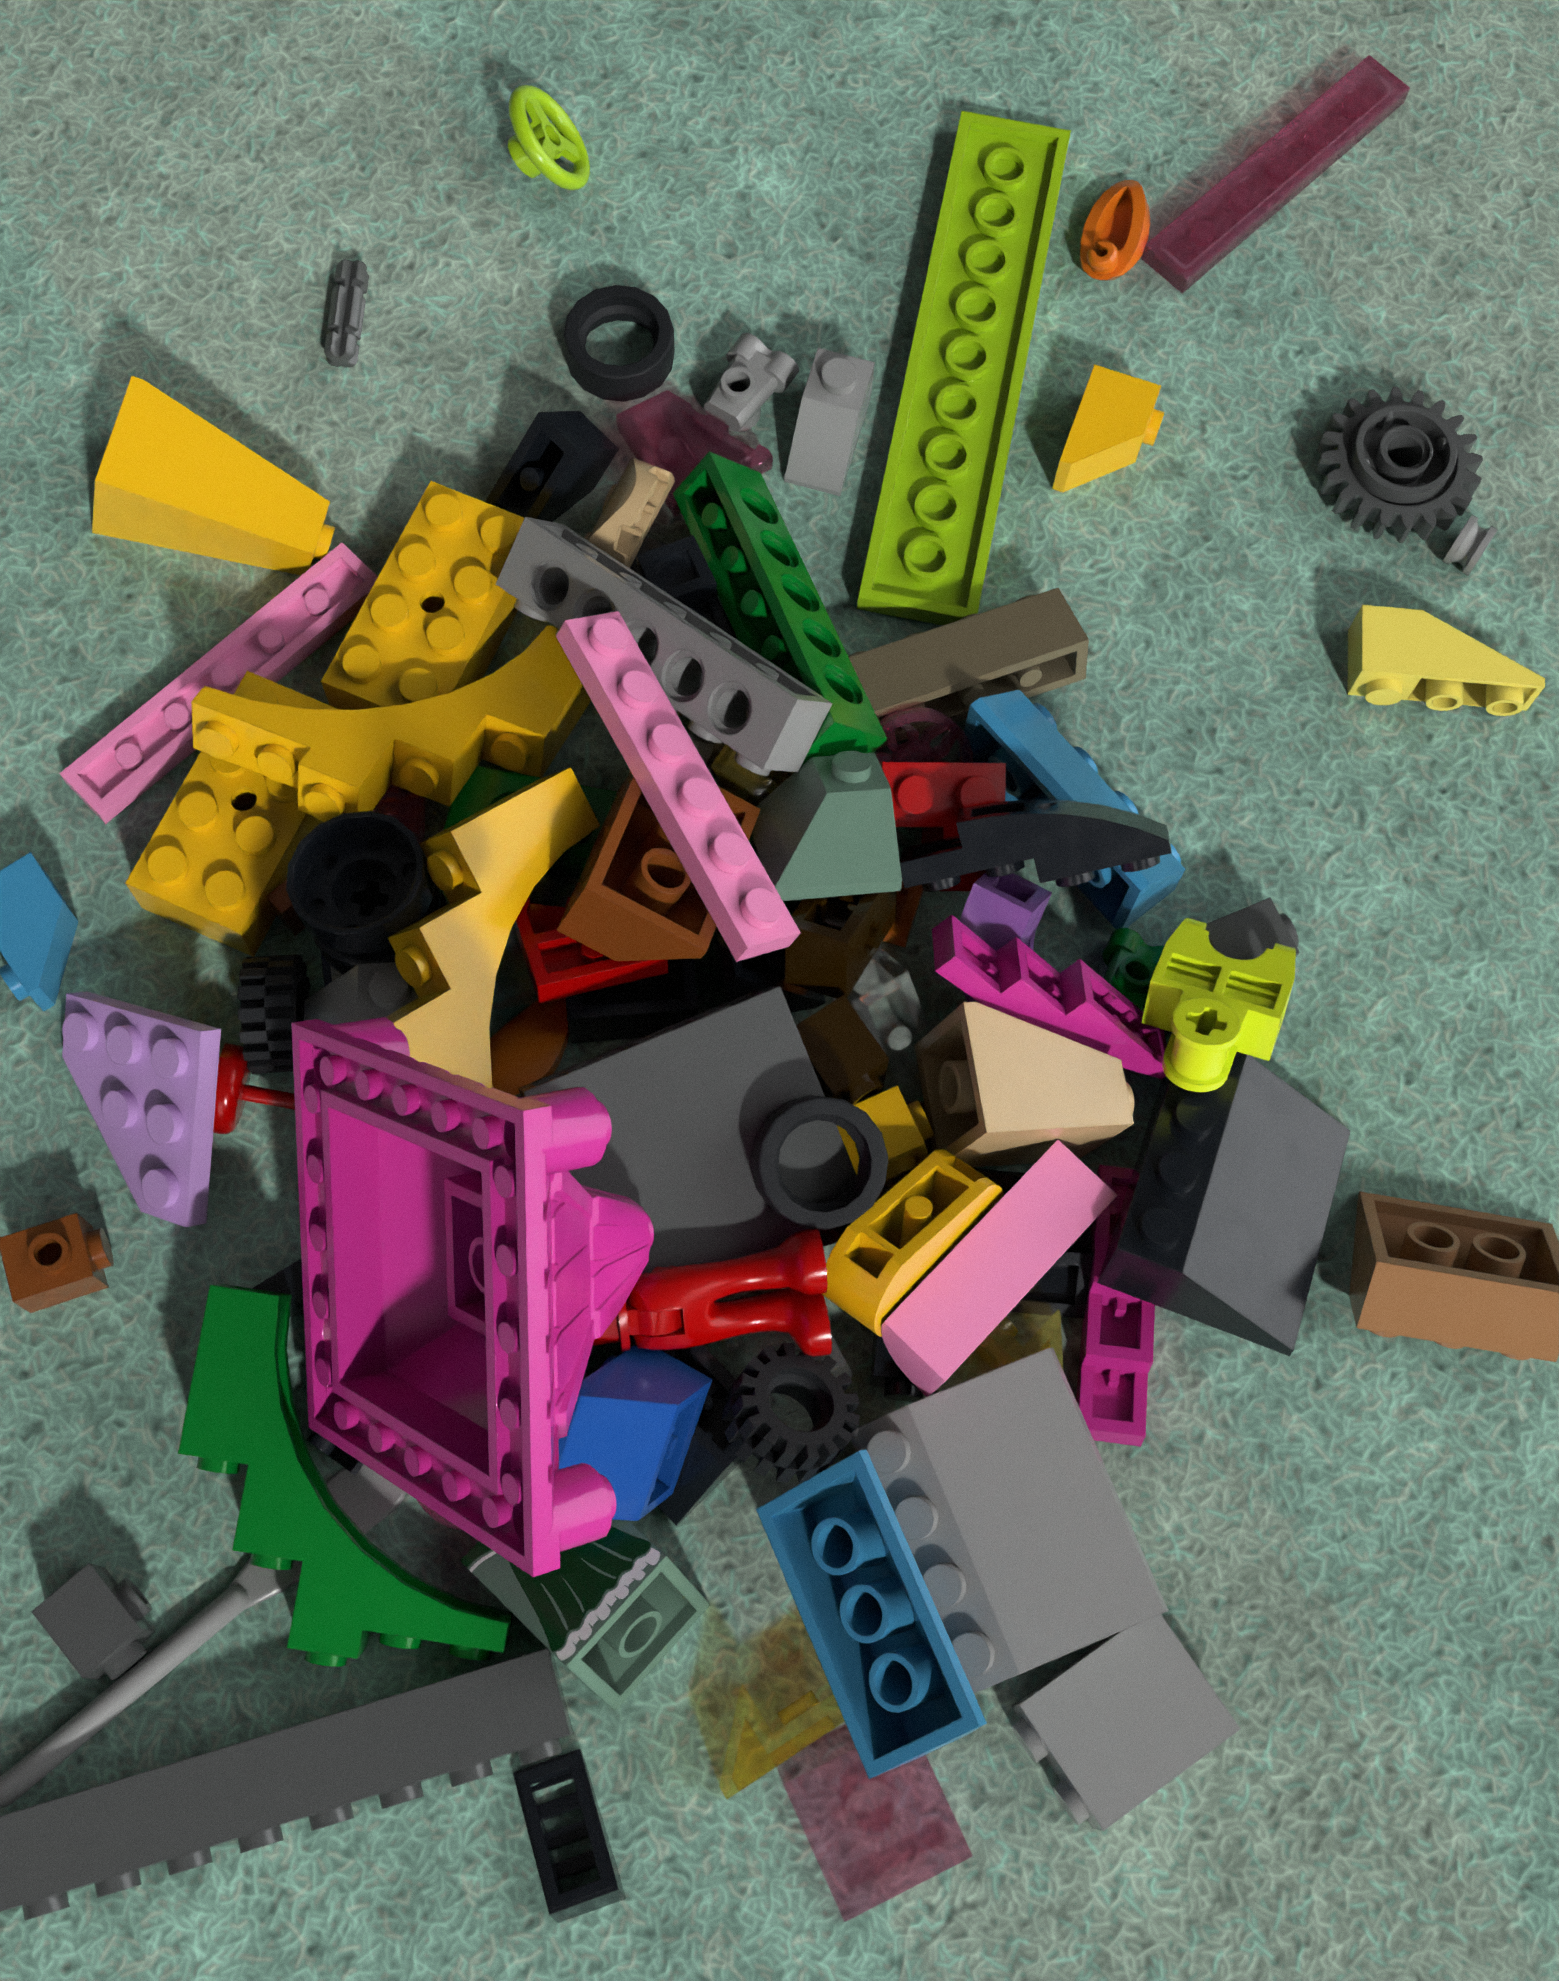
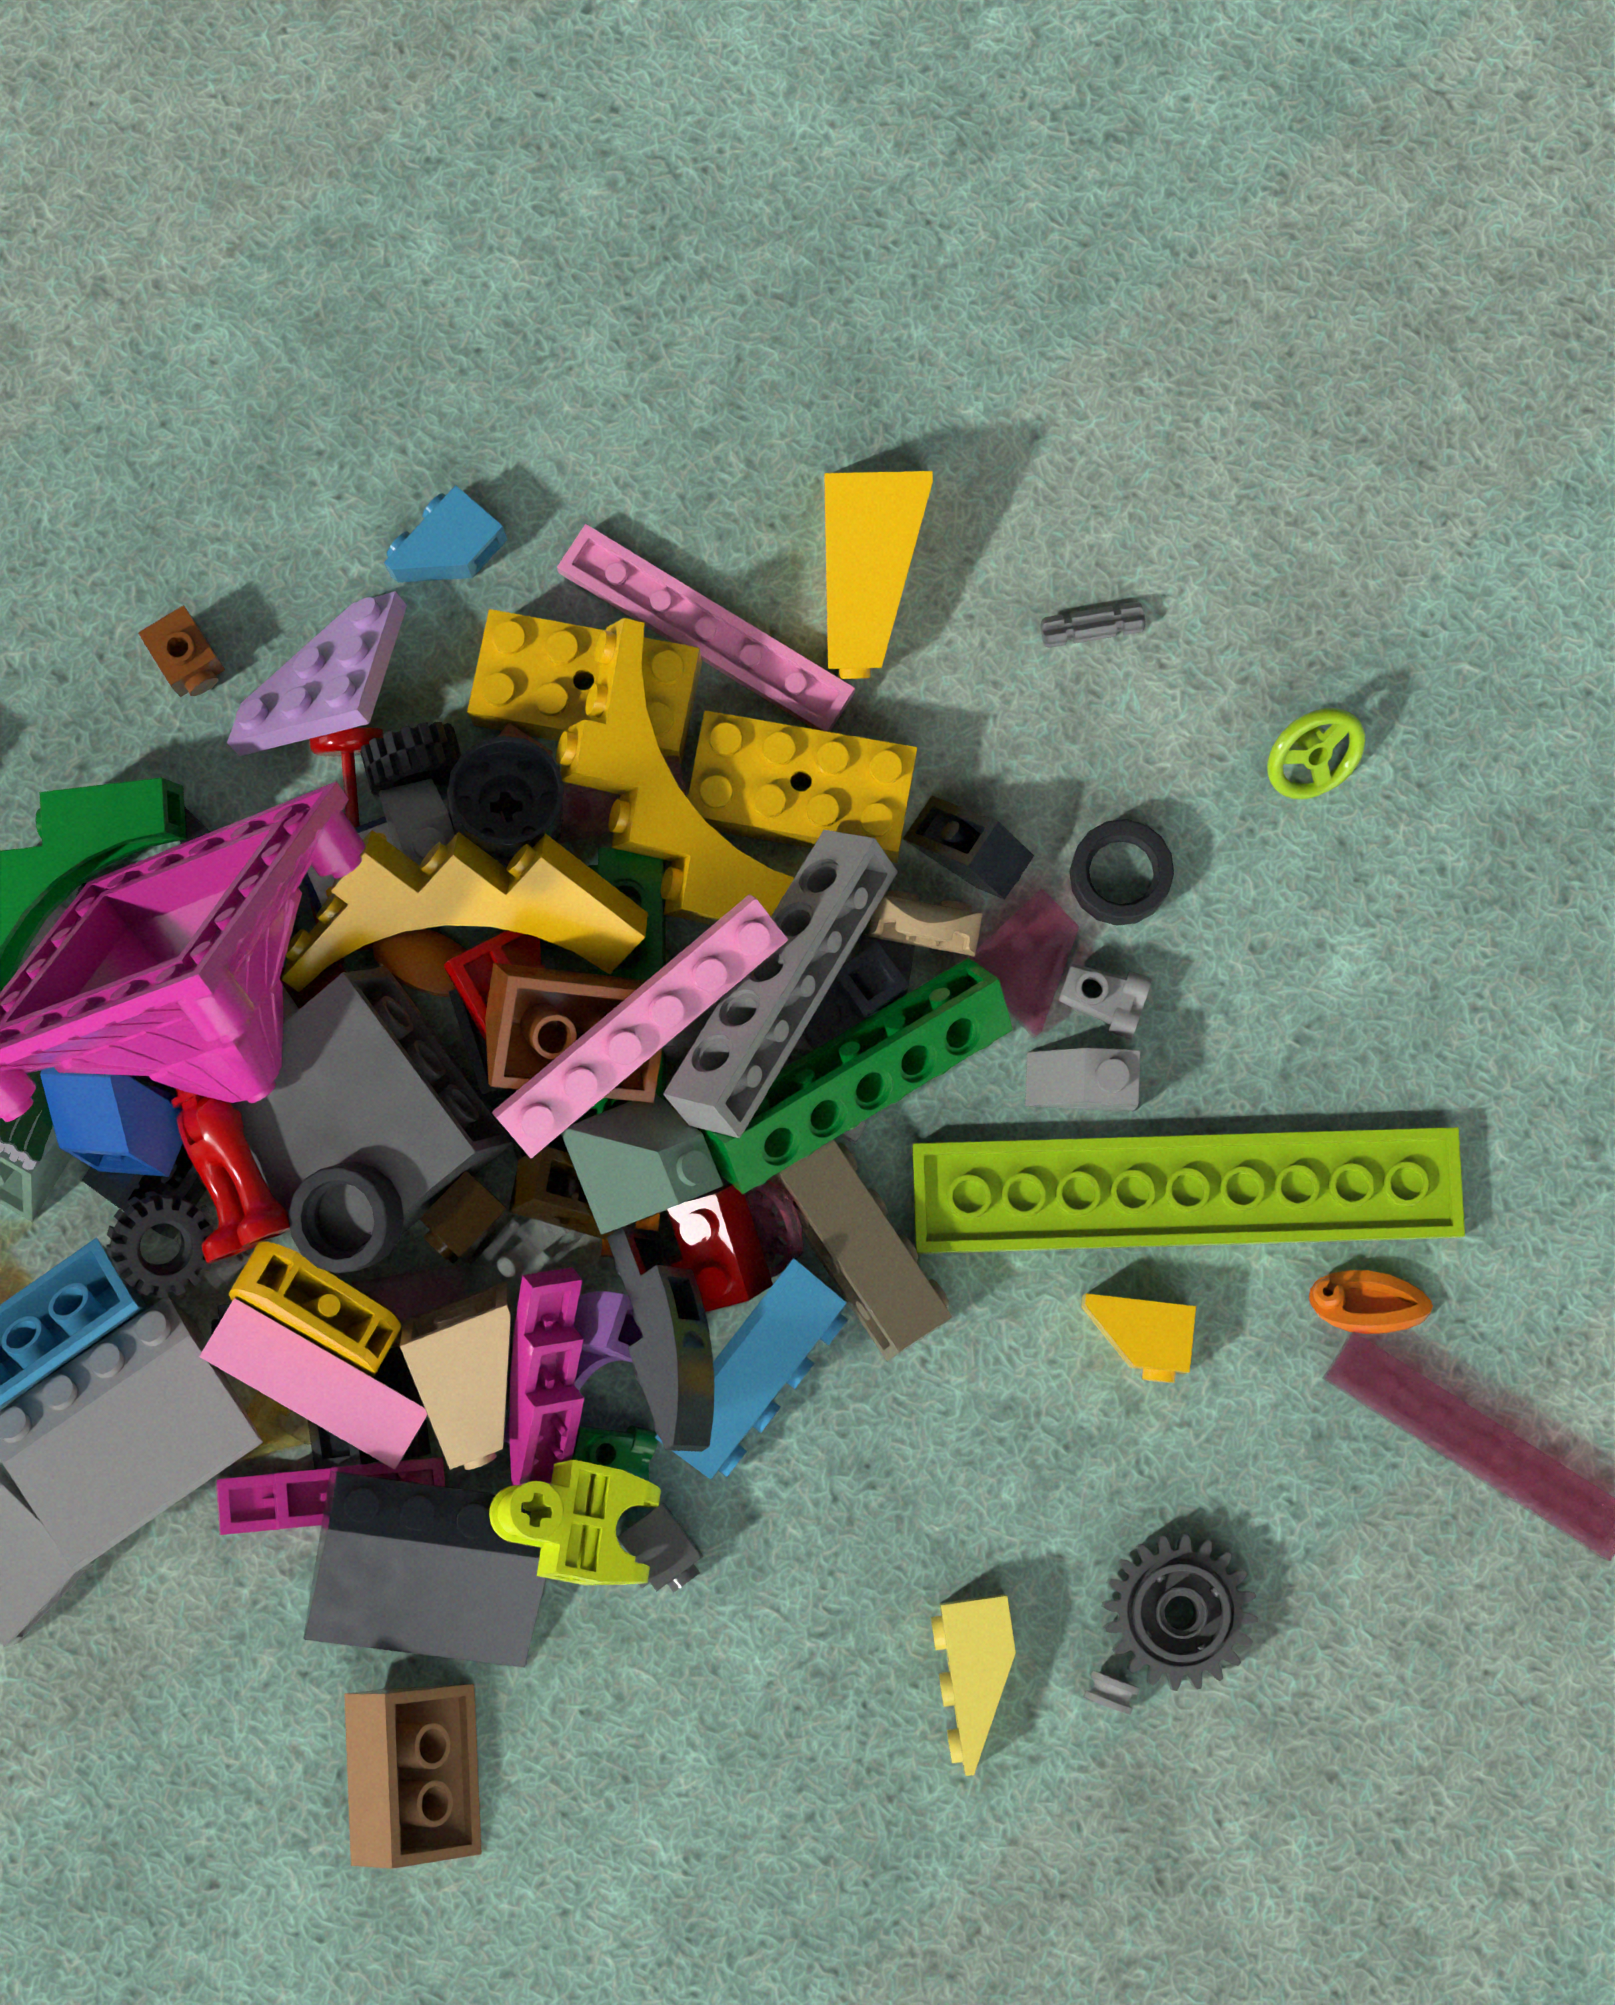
camera: 85 degrees right, 10 degrees up
(903, 1132) = (413, 1273): yellow brick -> none

